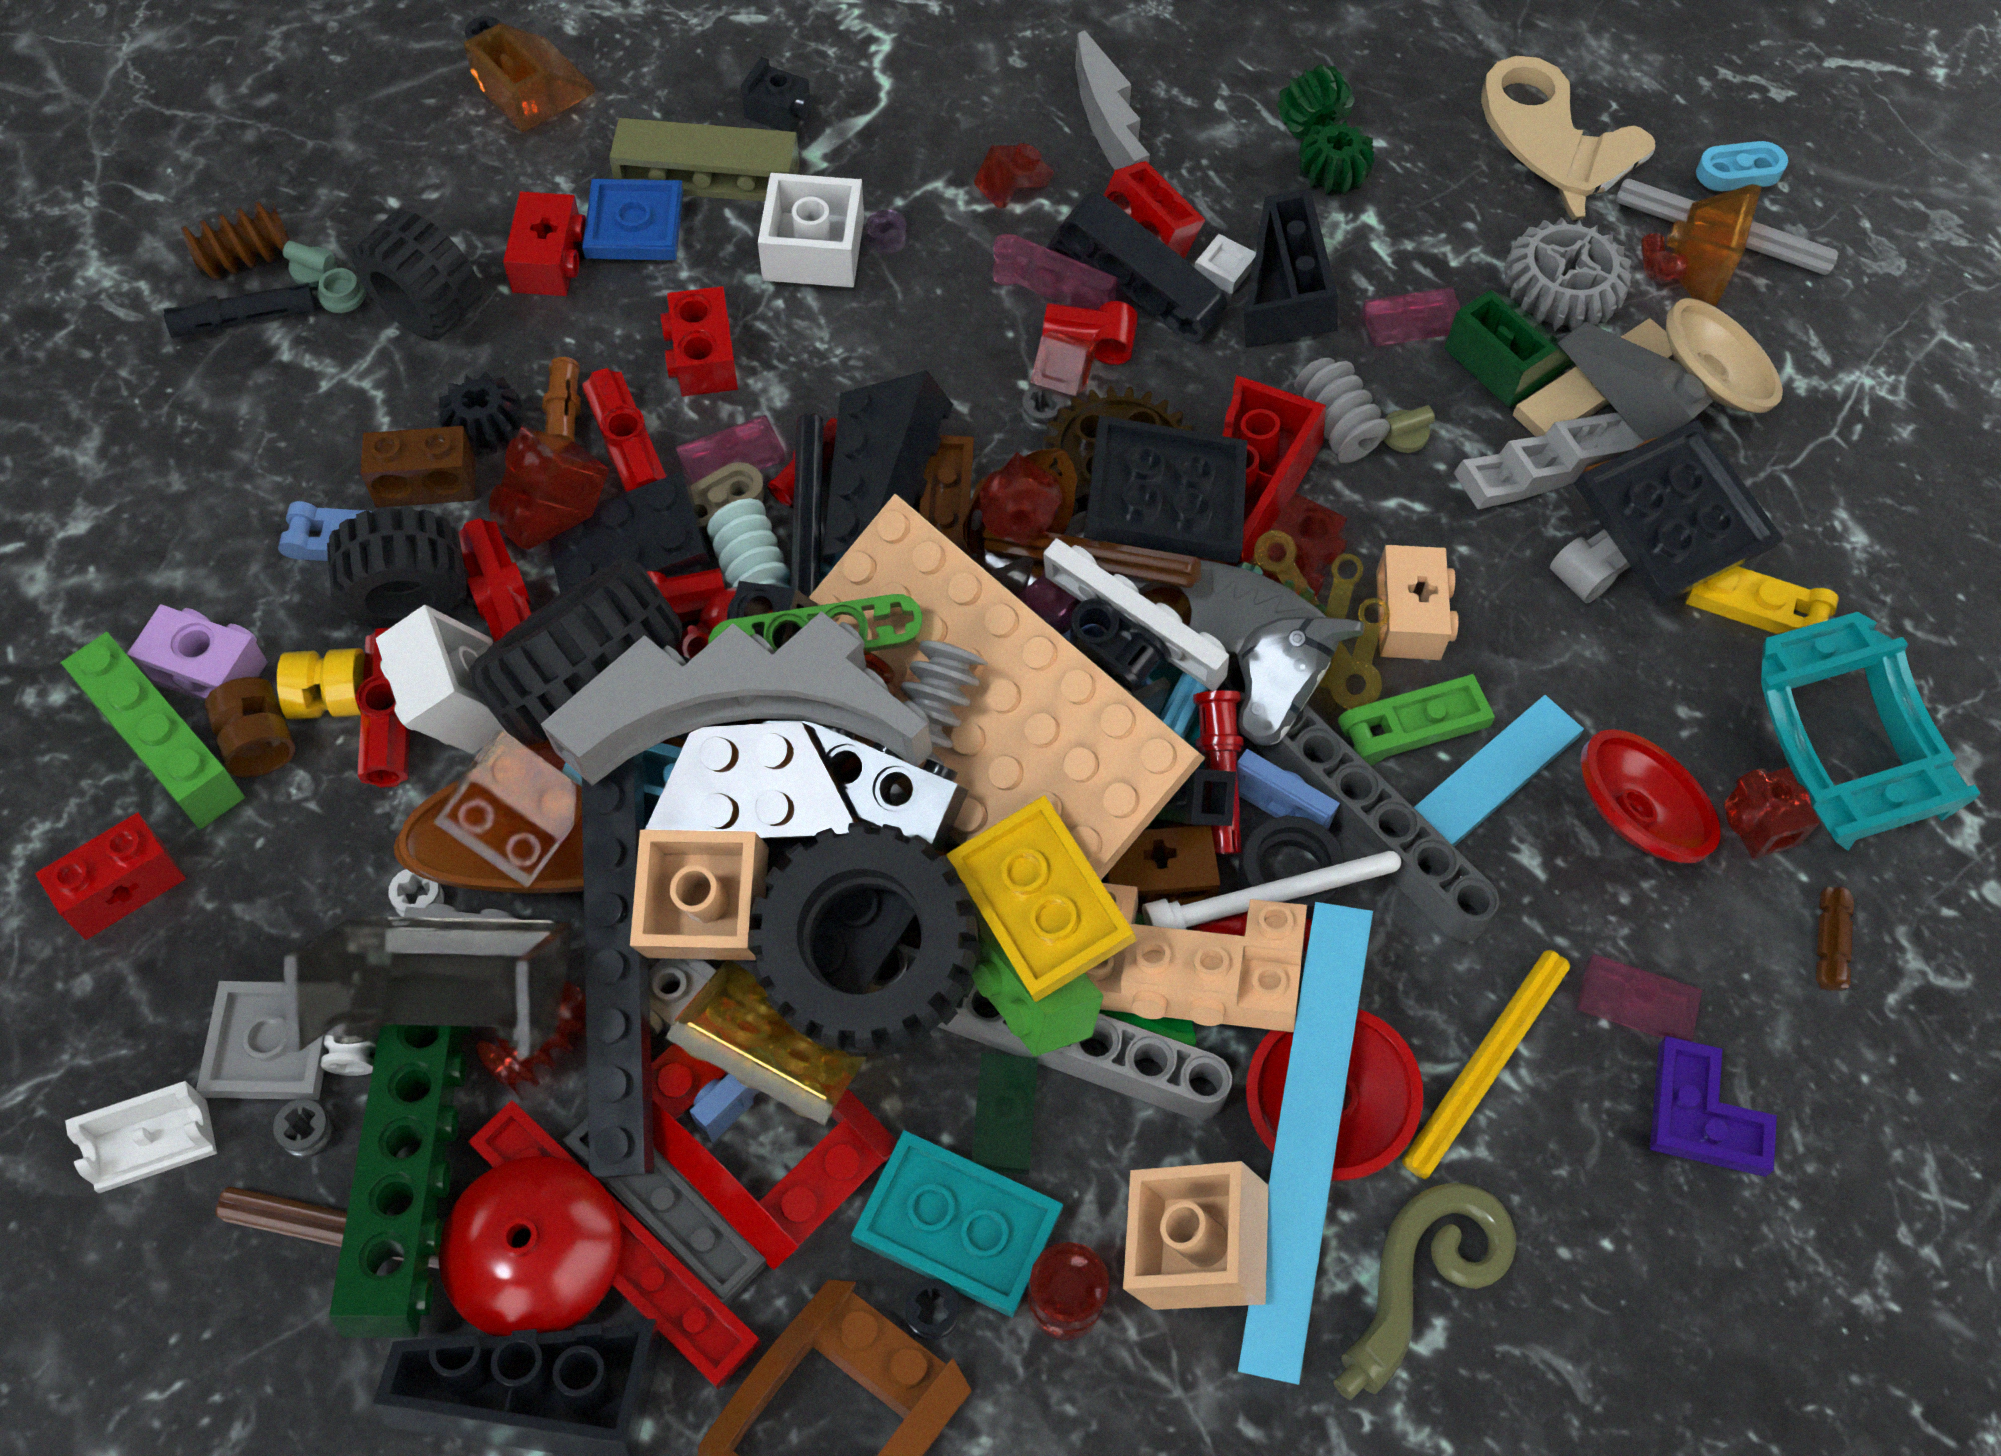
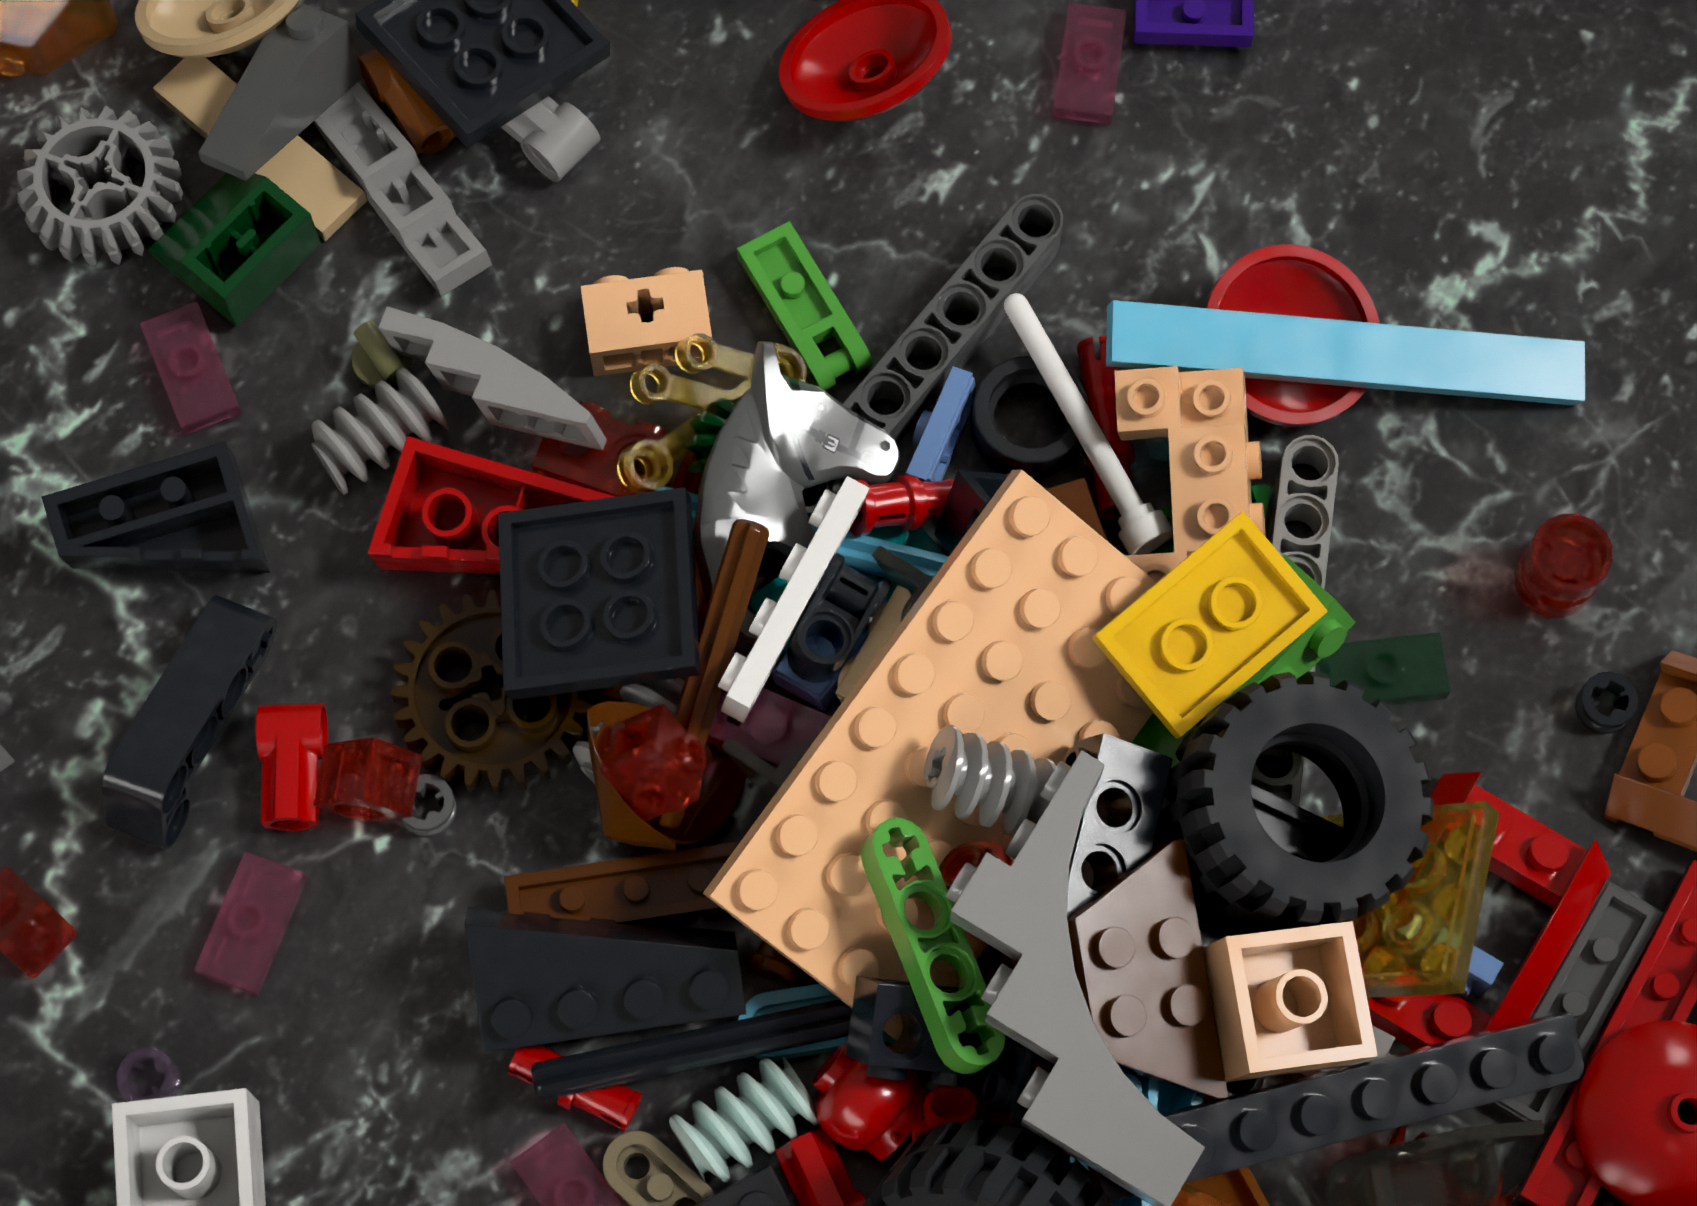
camera: 100 degrees left, 10 degrees up
(957, 1223) = (1516, 693): teal plate -> none
(980, 298) = (250, 924): none -> clear pink plate
(1050, 273) = (209, 827): clear pink plate -> none
(1155, 206) = (86, 710): red brick -> none
(1197, 1236) = (1483, 445): light nougat brick -> none
(1226, 263) = (136, 613): white tile -> none
(1364, 473) = (500, 384): none -> light grey slope
(1383, 1345) = (1506, 266): olive plant -> none
(1485, 1065) = (1185, 195): yellow axle -> none
(1499, 770) = (850, 220): medium azure tile -> none
(1661, 264) = (59, 80): clear red arm -> none

